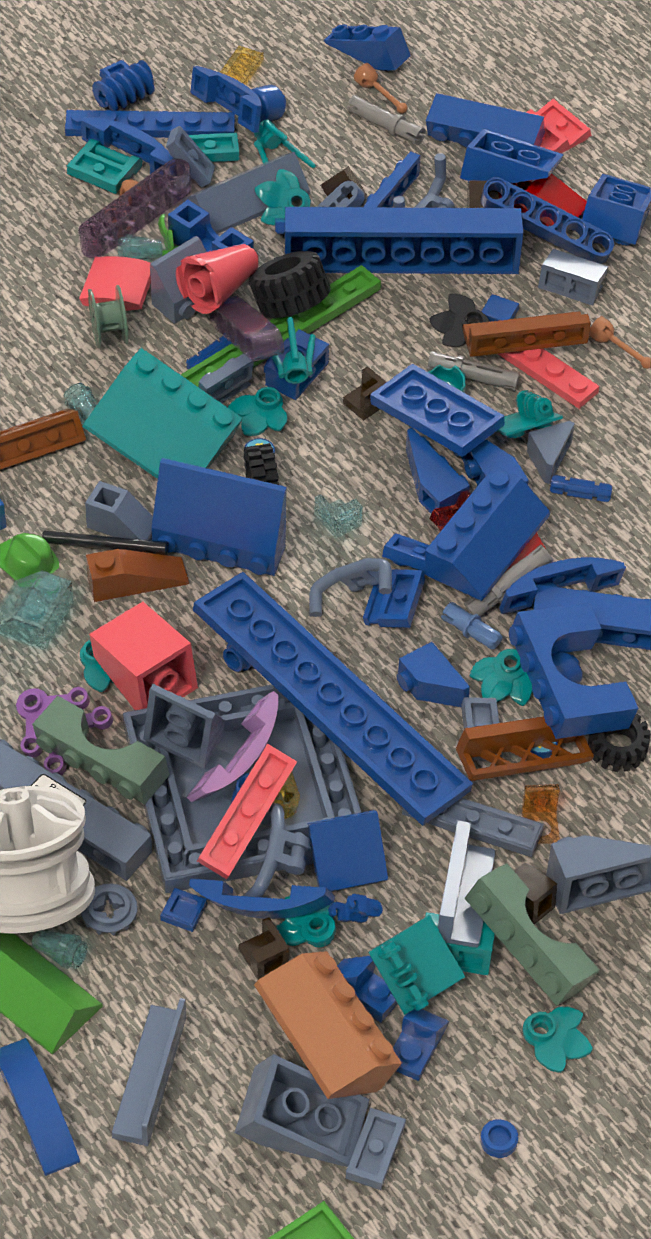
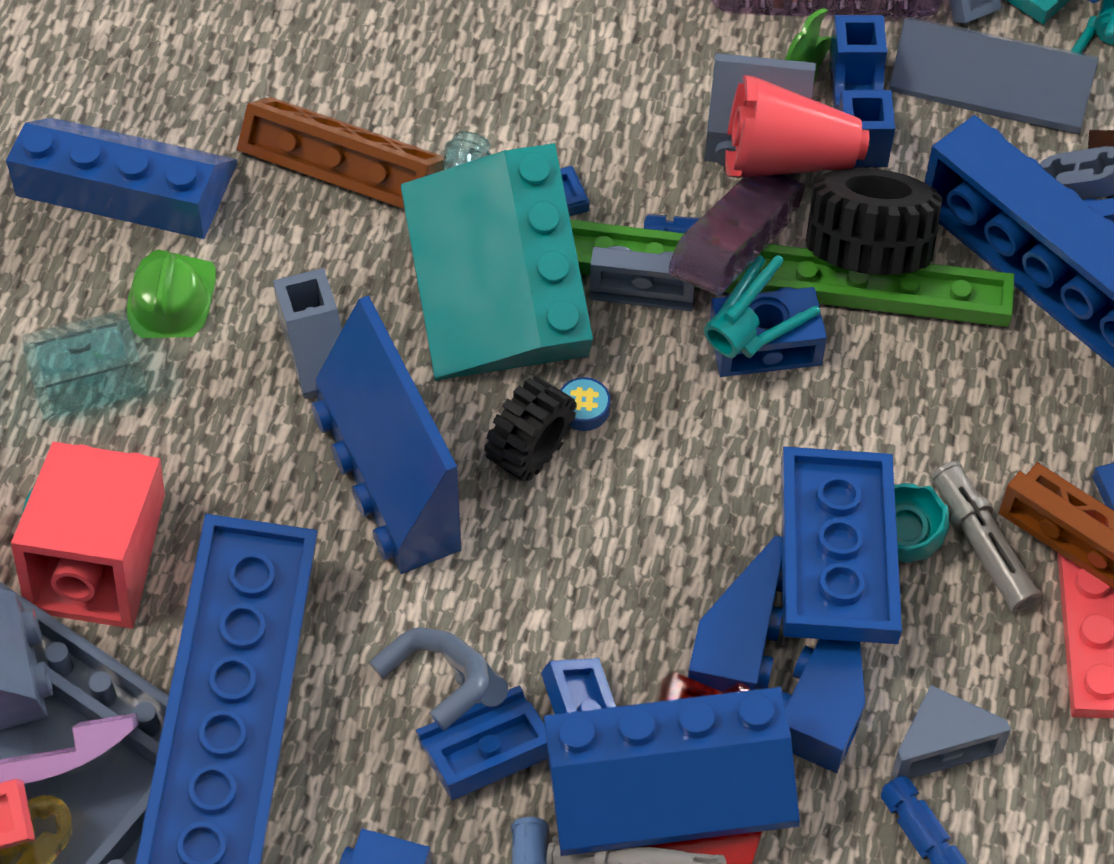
camera: 50 degrees right, 5 degrees up
(105, 542) = (265, 354): black bar -> none
(108, 316) = (613, 83): sand green piece -> none
(128, 273) = (685, 52): coral slope -> none
(130, 572) = (240, 417): dark orange slope -> none
(139, 247) = (767, 30): clear light blue cone -> none
(258, 414) = (647, 355): teal plate -> none
(279, 194) = (1021, 102): teal plate -> none
(338, 516) = (564, 569): clear light blue panel -> none
(359, 399) = (797, 436): dark brown panel -> none
(451, 322) = (1057, 449): black plate -> none
(532, 412) = (968, 668): teal hinge -> none

